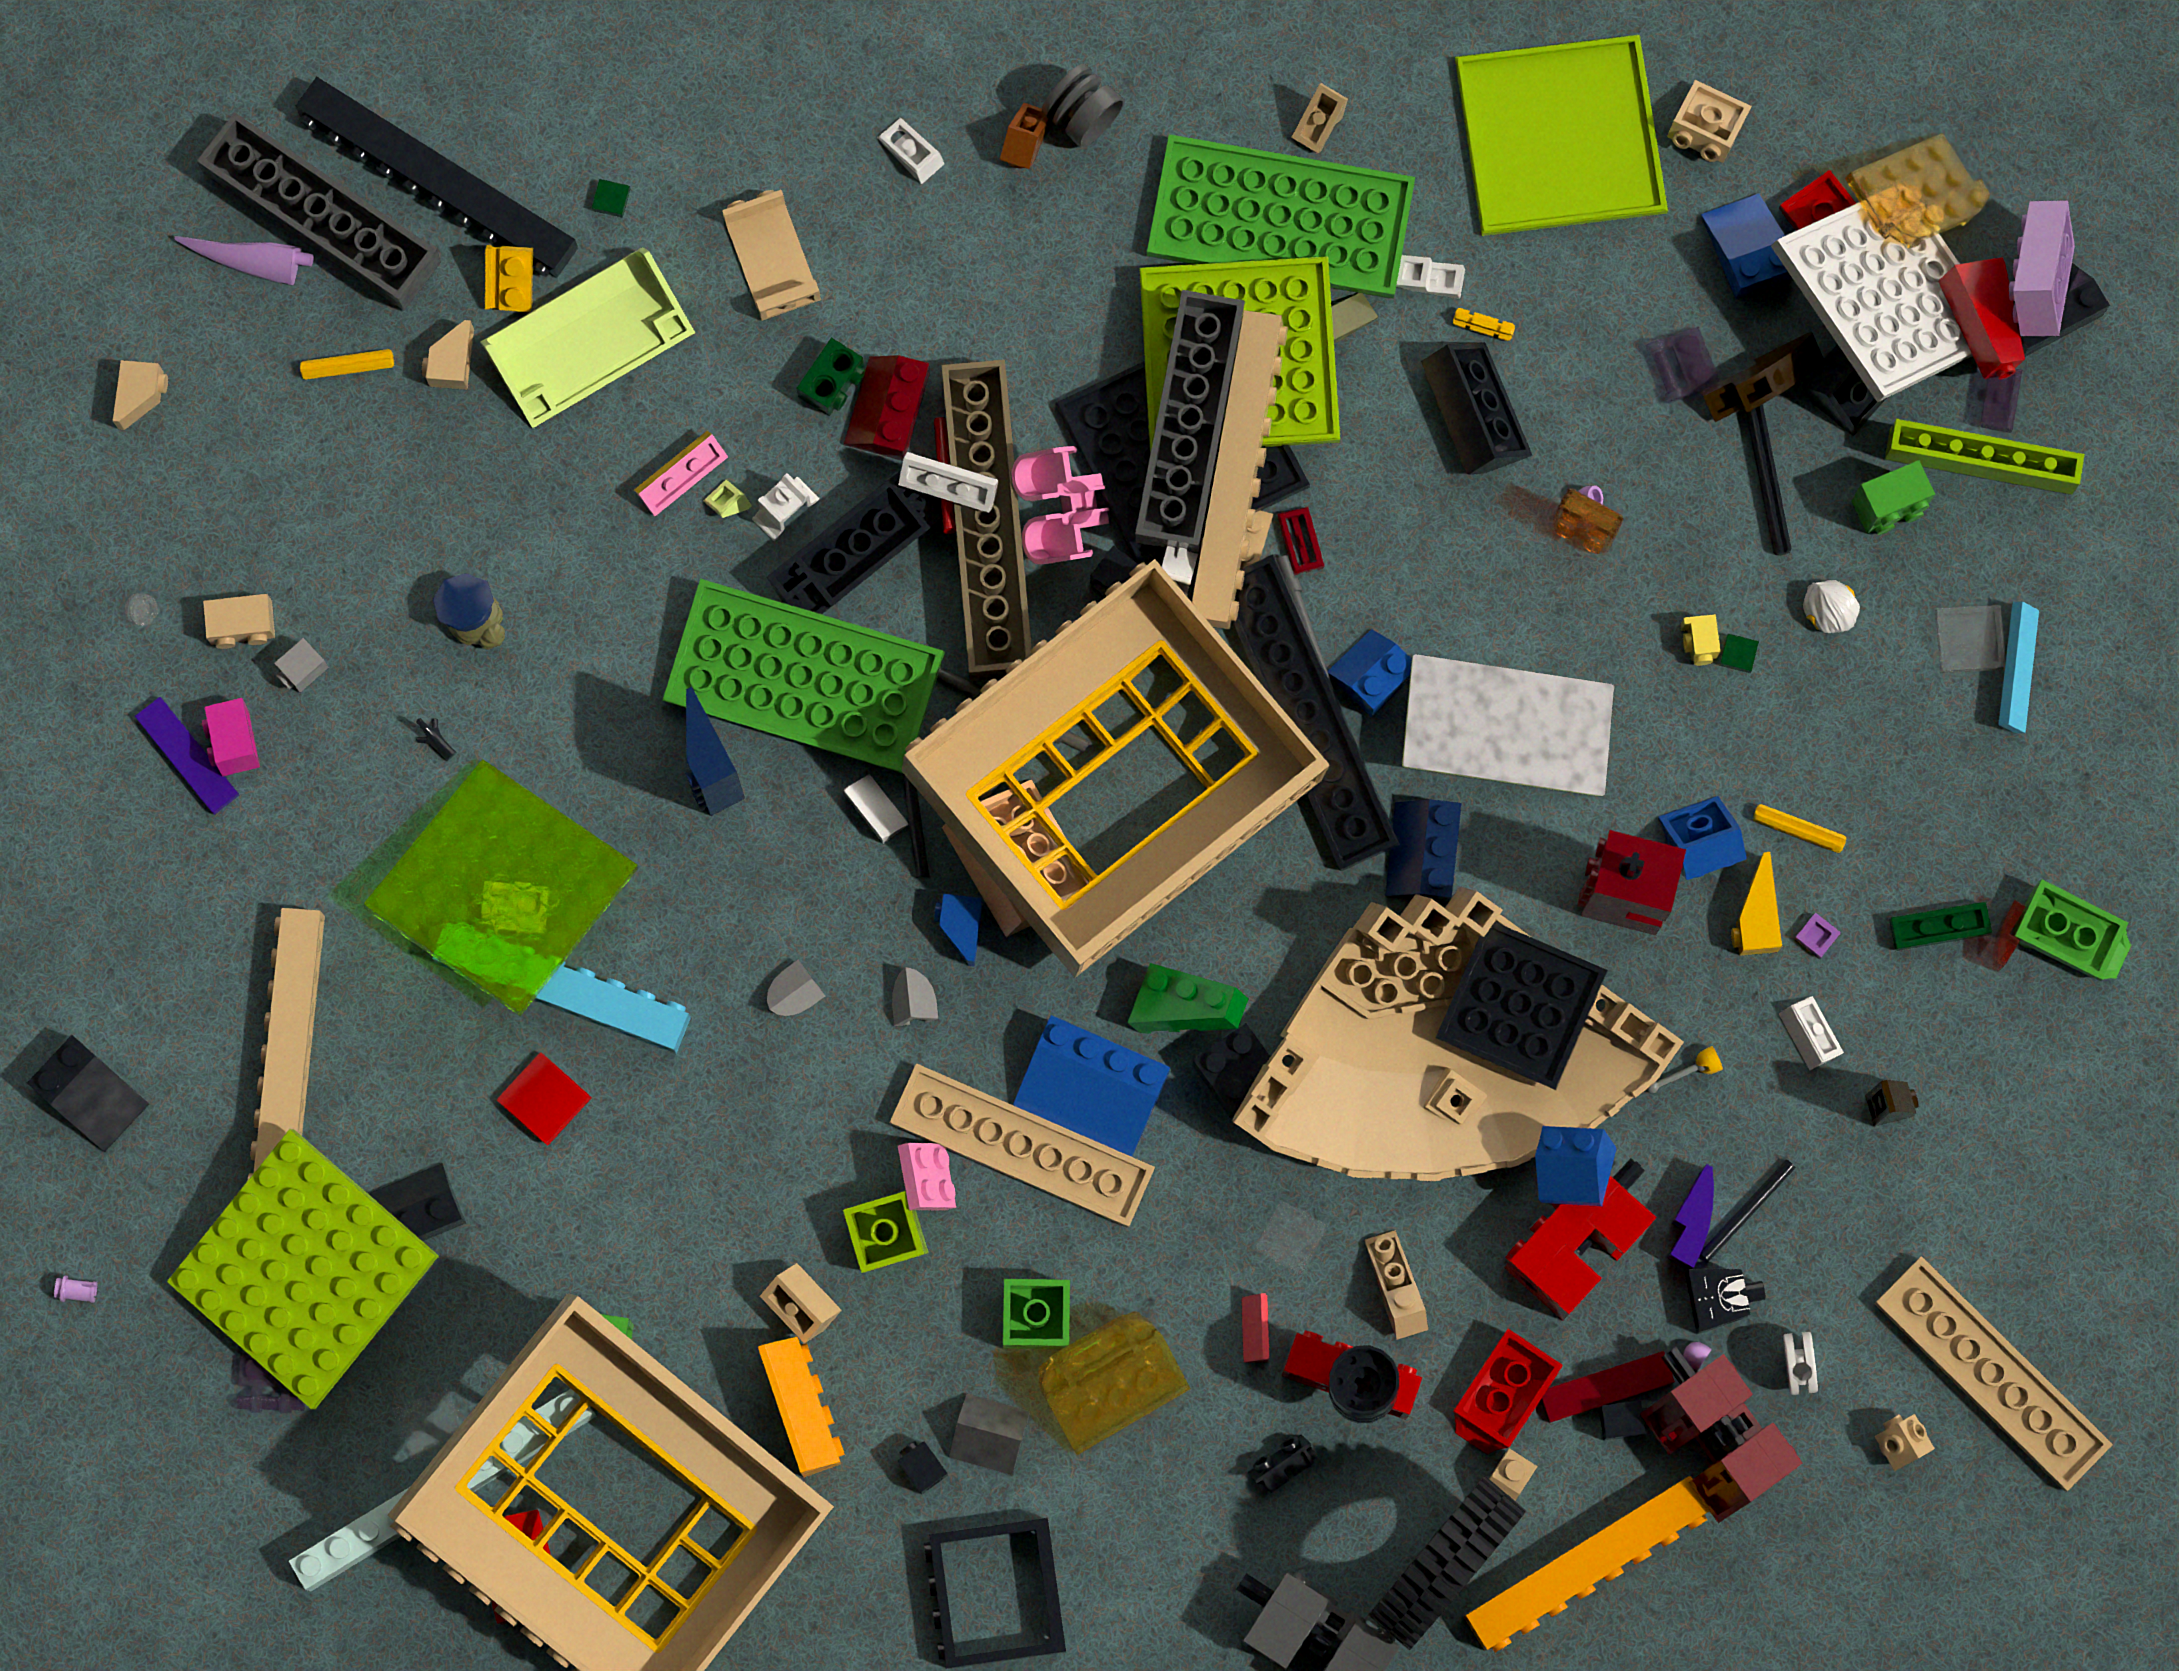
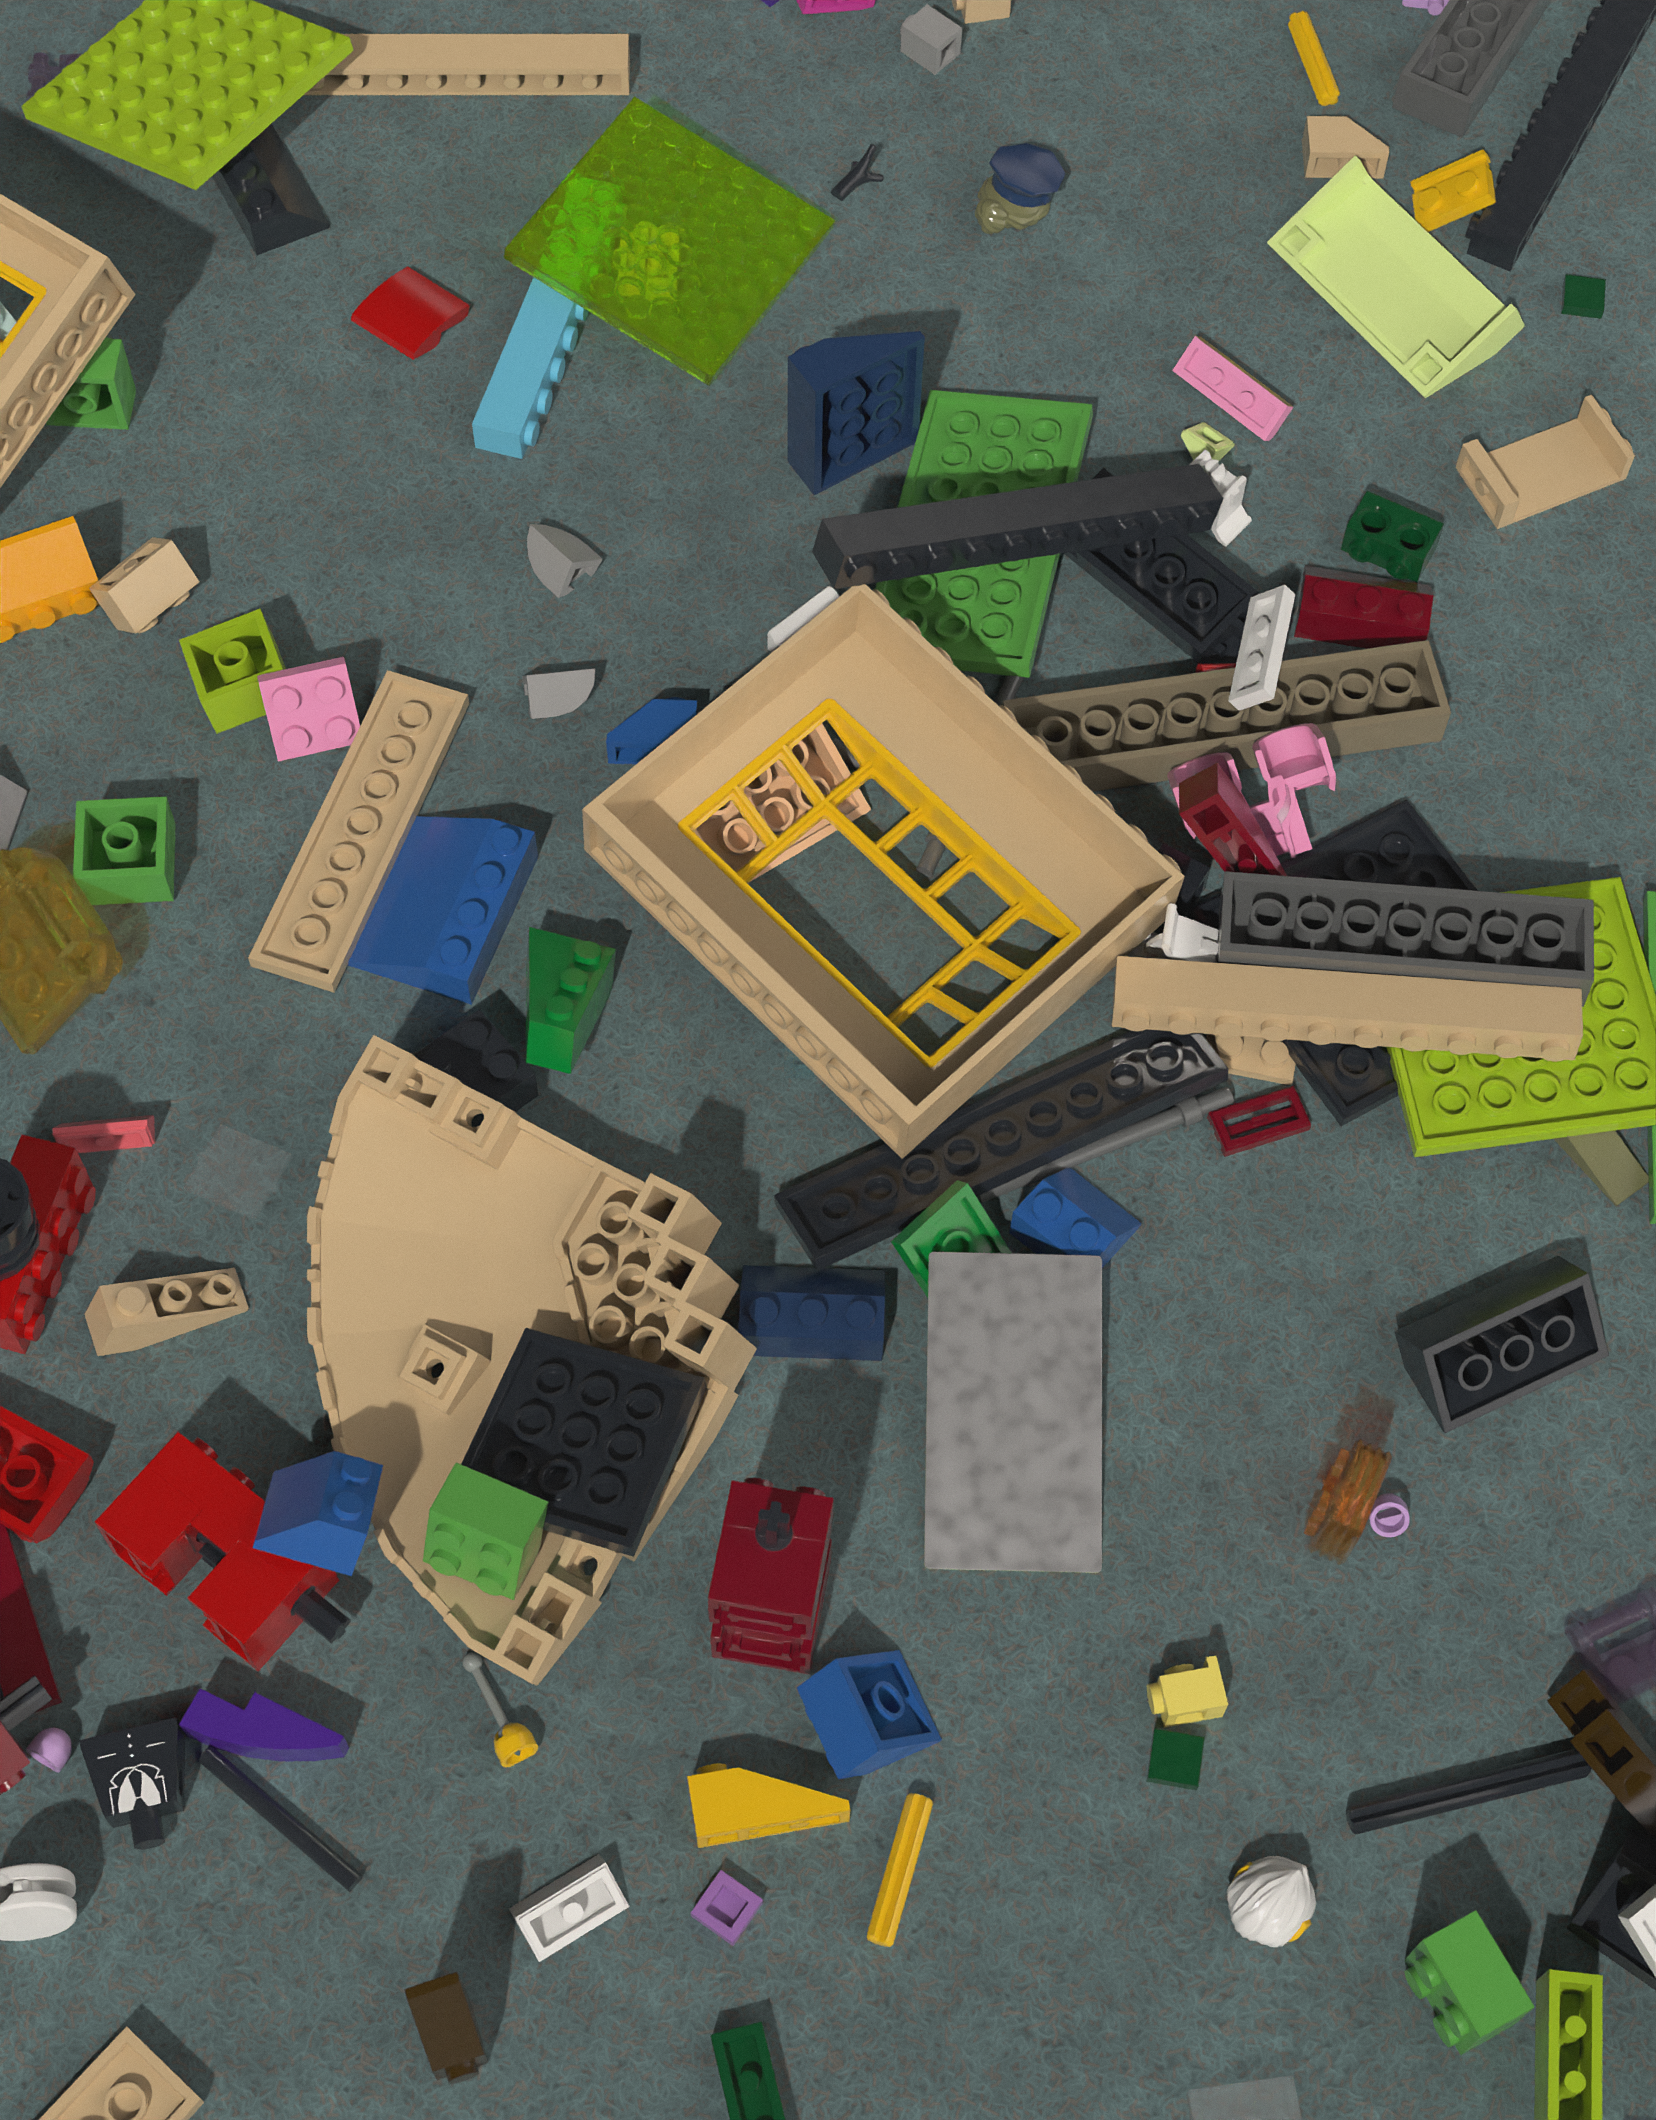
camera: 85 degrees right, 15 degrees down
(850, 639) = (1015, 525): none -> black brick
(1101, 526) = (1226, 824): none -> dark red slope
(1383, 750) = (948, 1225): none -> green plate
(1483, 324) = (1635, 1349): yellow axle -> none
(1588, 1064) = (484, 1531): none -> bright green brick

